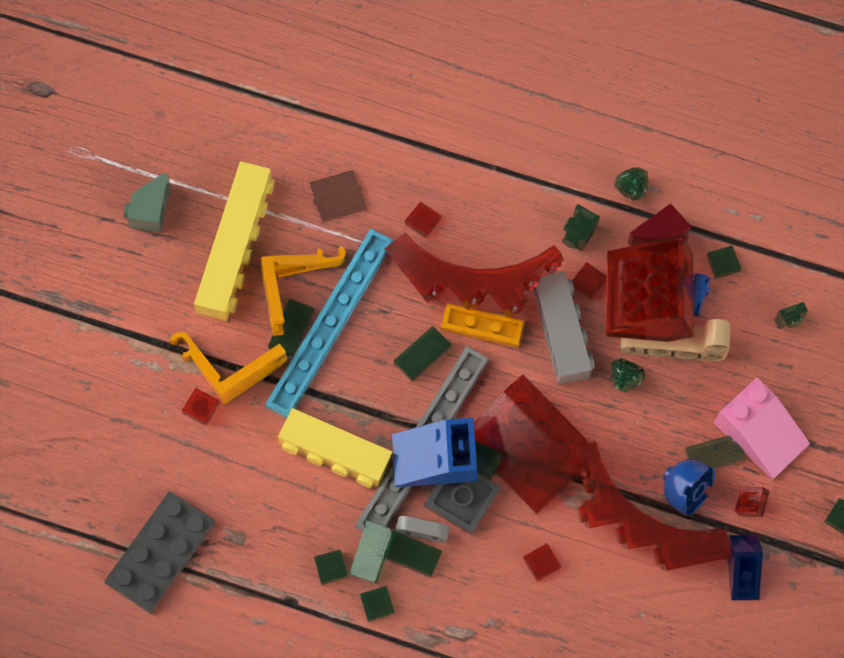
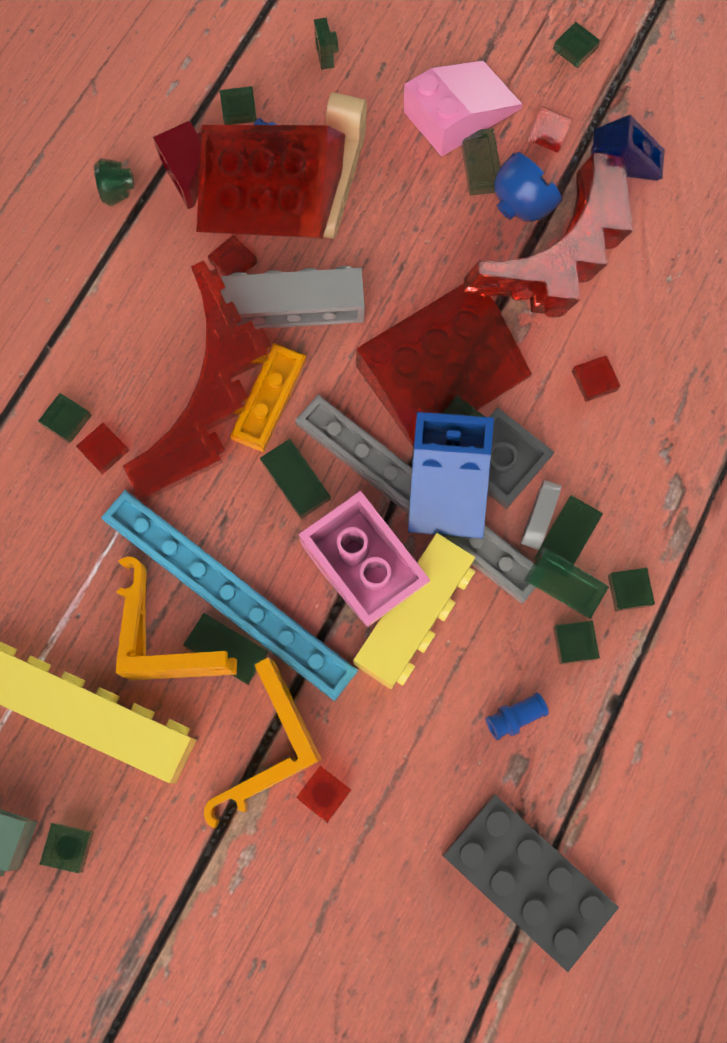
camera: 80 degrees left, 5 degrees up
(146, 252) = (66, 848): none -> clear green plate
(270, 528) = (512, 718): none -> blue pin
(337, 196) = (40, 557): clear smoke piece -> none
(365, 402) = (363, 559): none -> bright pink slope
(441, 190) = (64, 418): none -> clear green tile
(580, 228) = (159, 252): clear green brick -> none
(626, 375) = (370, 234): clear green cone -> none

